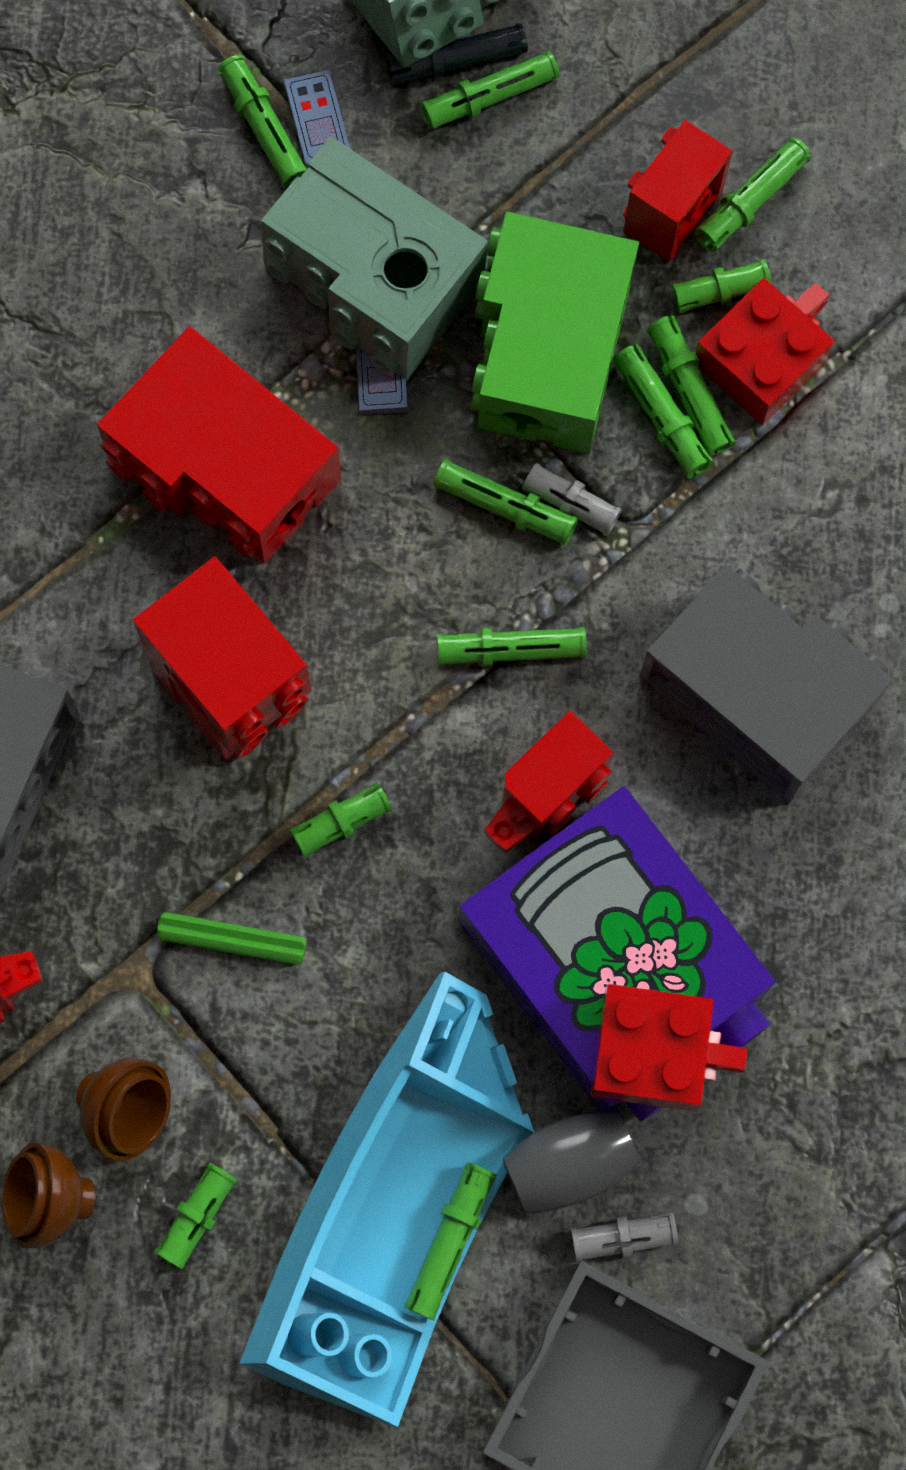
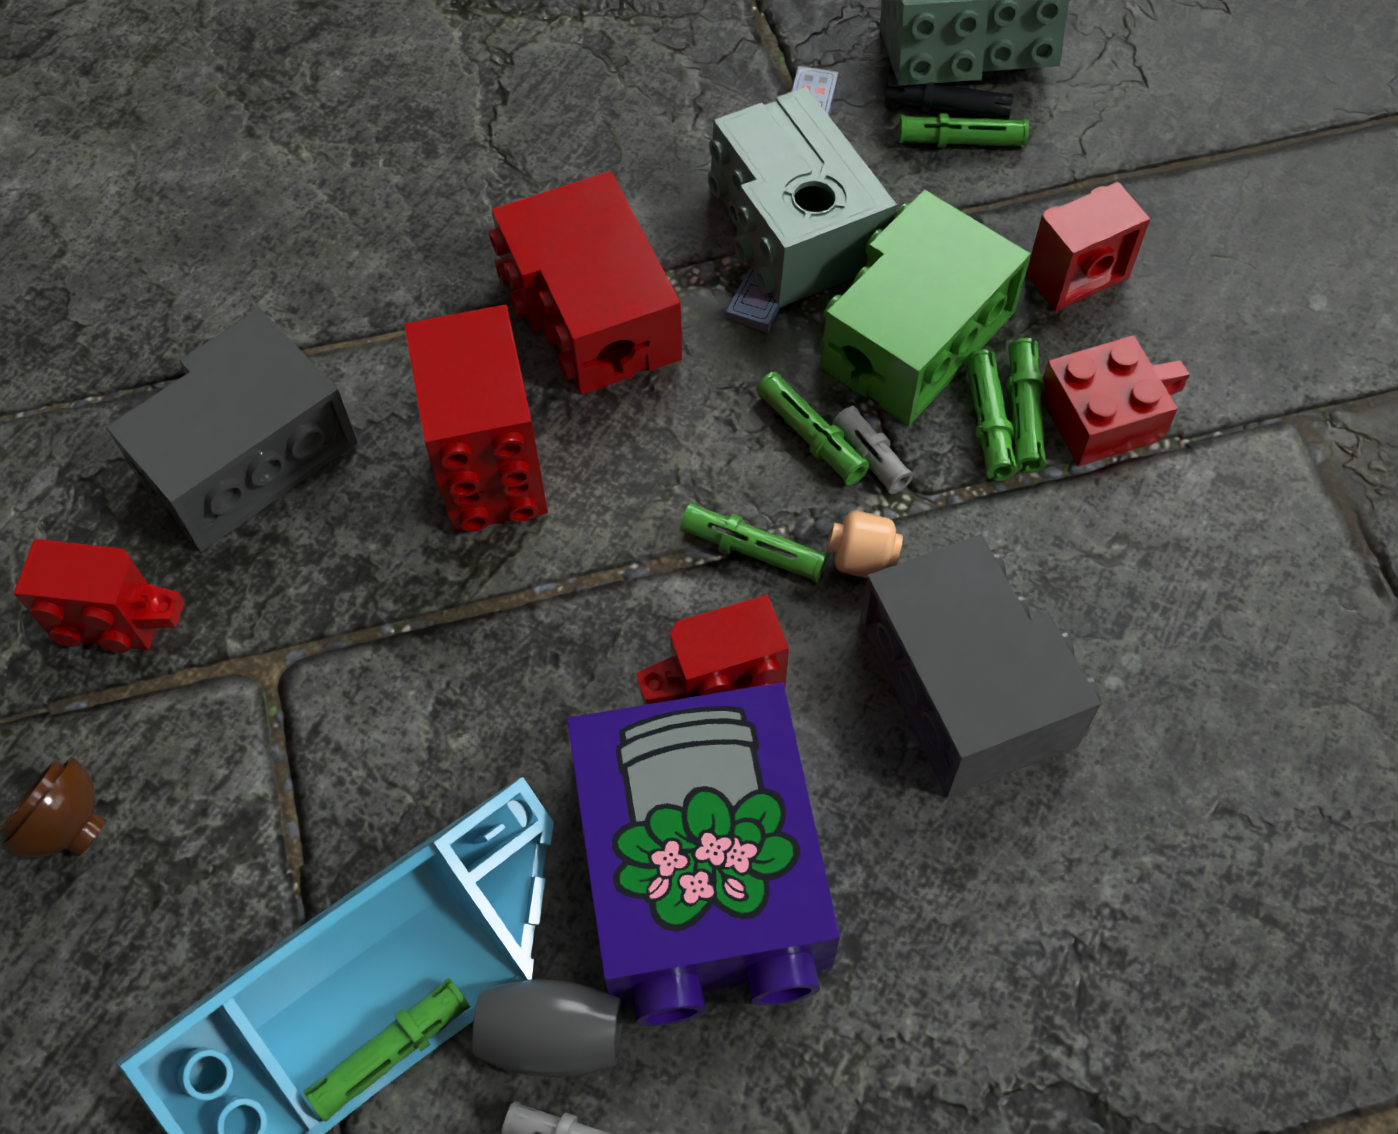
camera: 30 degrees right, 15 degrees down
(124, 1107) = (179, 783): reddish brown piece -> none
(196, 1215) = (175, 904): bright green pin -> none
(231, 938) = (365, 674): bright green axle -> none
(254, 105) = (764, 68): bright green pin -> none
(340, 819) = (519, 618): bright green pin -> none
(614, 604) = (864, 544): none -> light nougat head
(659, 1048) = (678, 938): red hinge -> none
(719, 286) = (1081, 337): bright green pin -> none
(739, 207) = (1138, 288): bright green pin -> none

